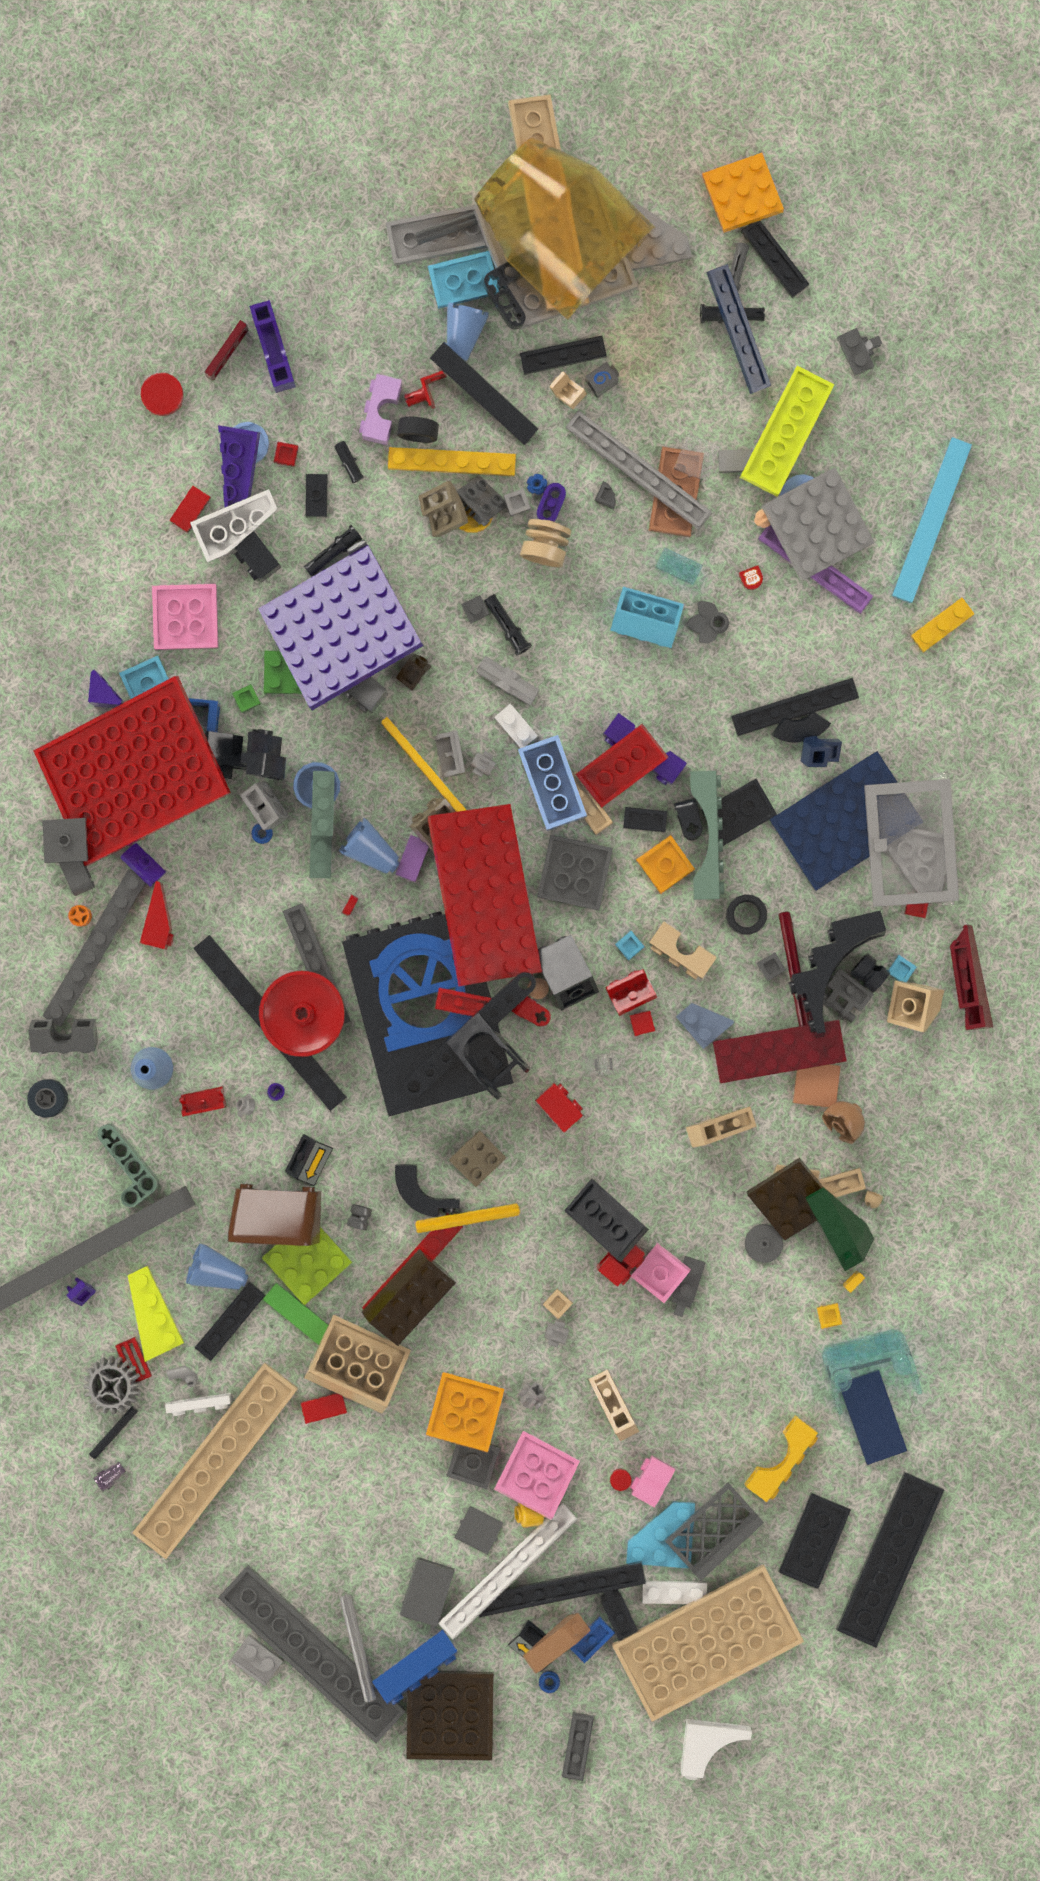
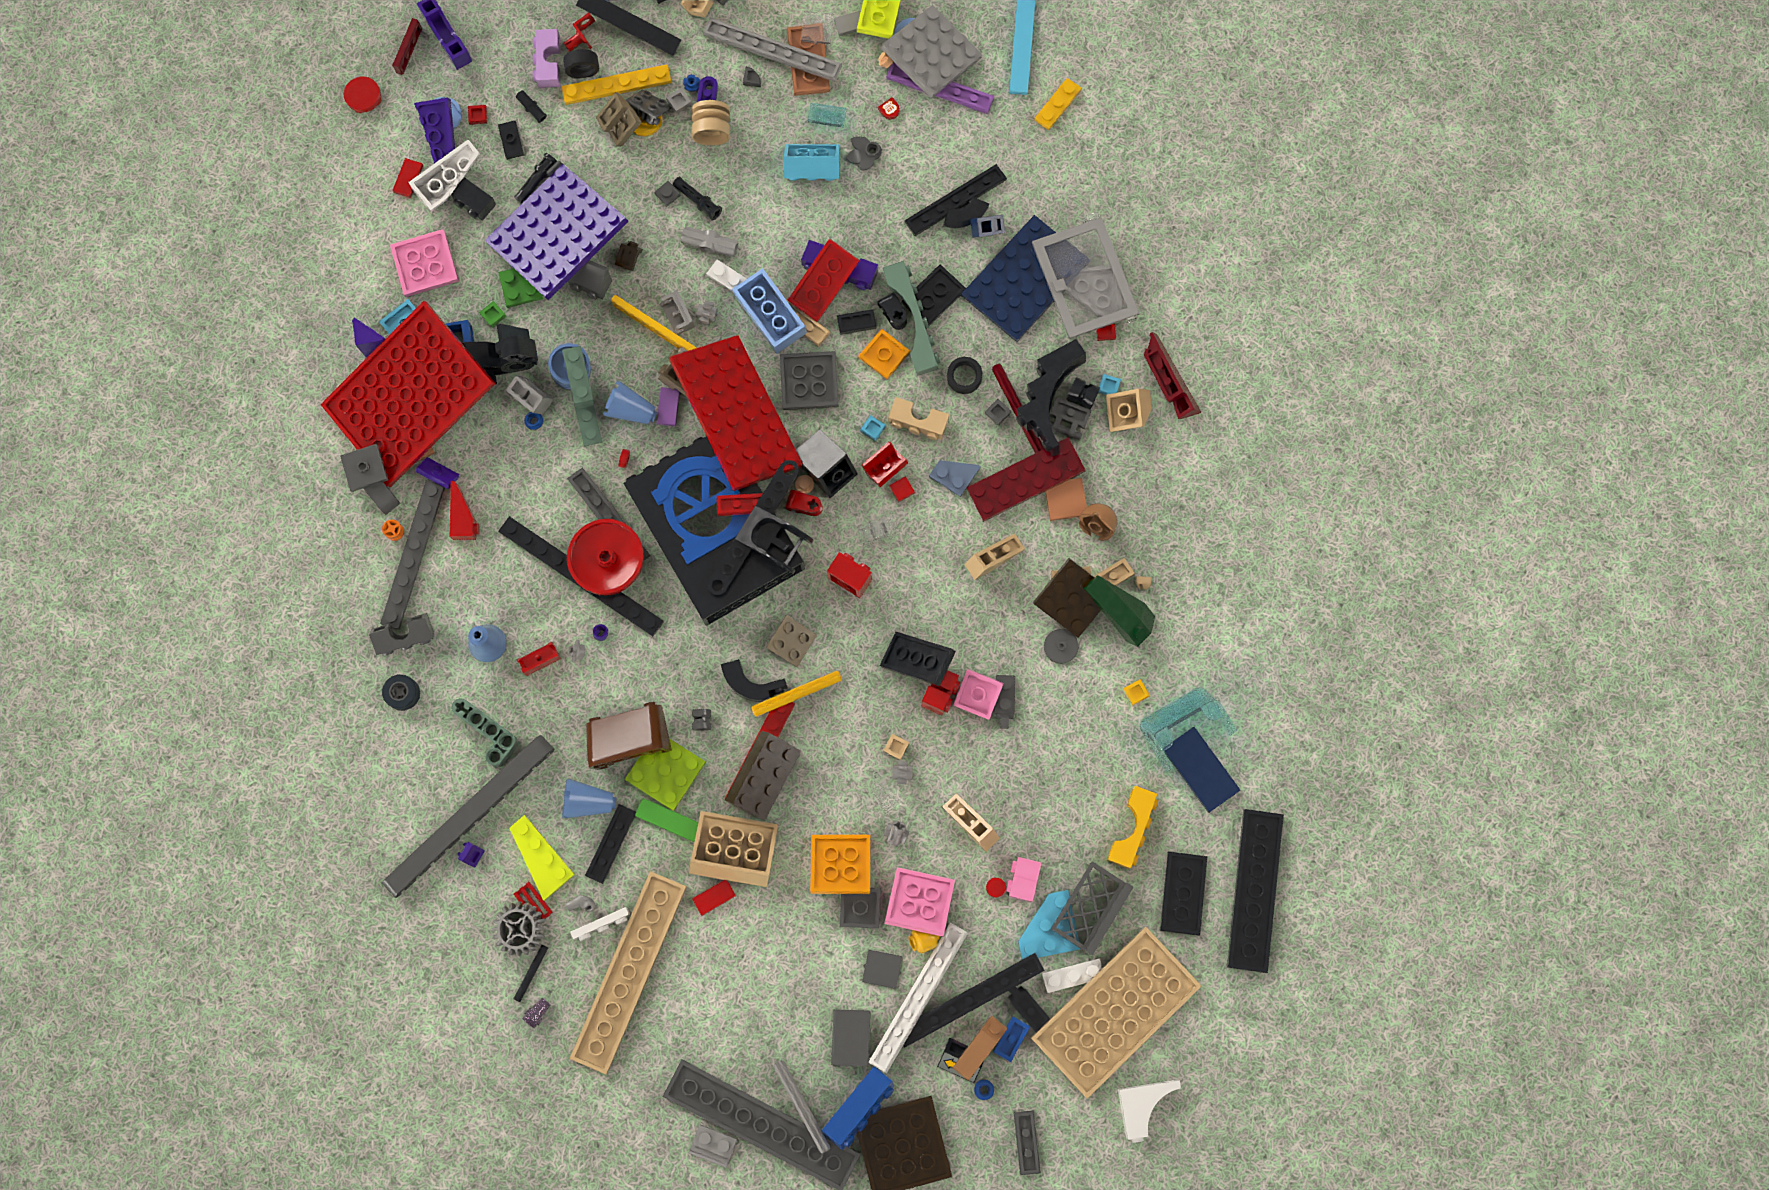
camera: 15 degrees left, 10 degrees down
(308, 1160) = (644, 682): panel -> none
(853, 1281) = (1148, 655): yellow tile -> none

